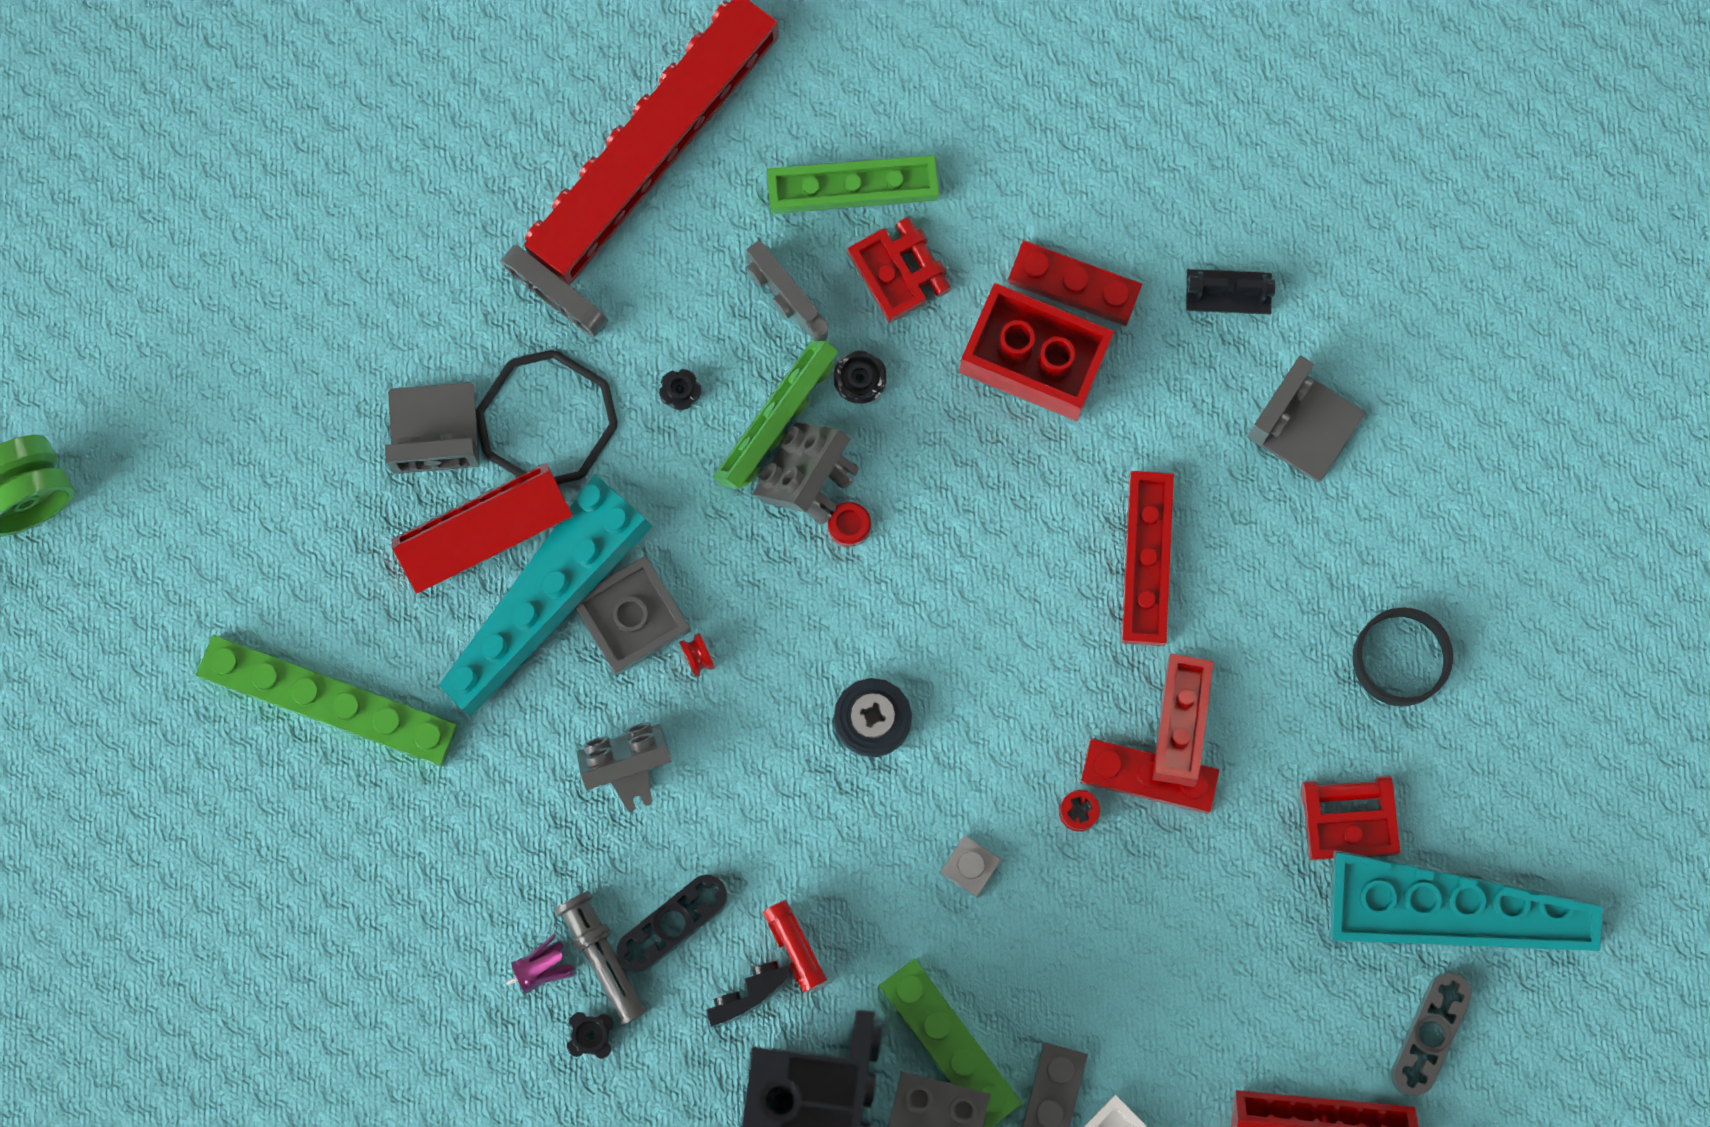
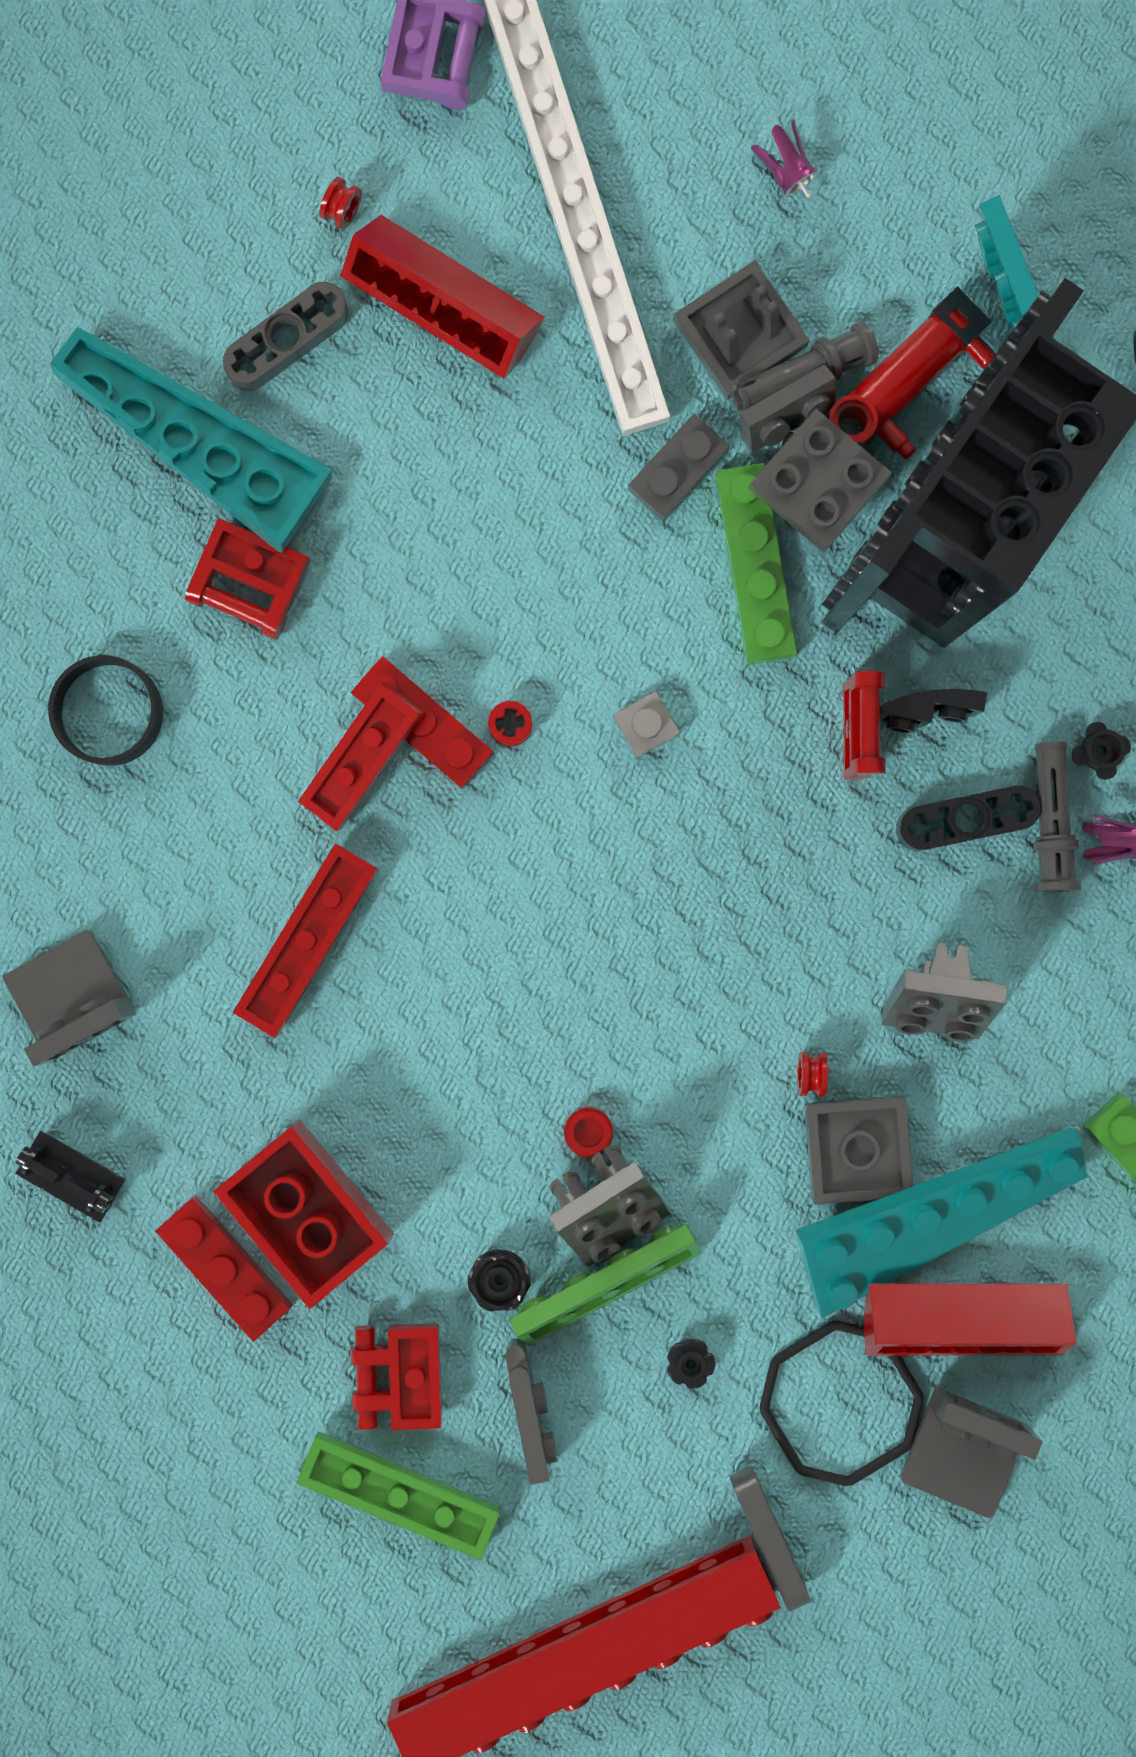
camera: 150 degrees left, 10 degrees up
(867, 732) = (650, 913): black wheel -> none

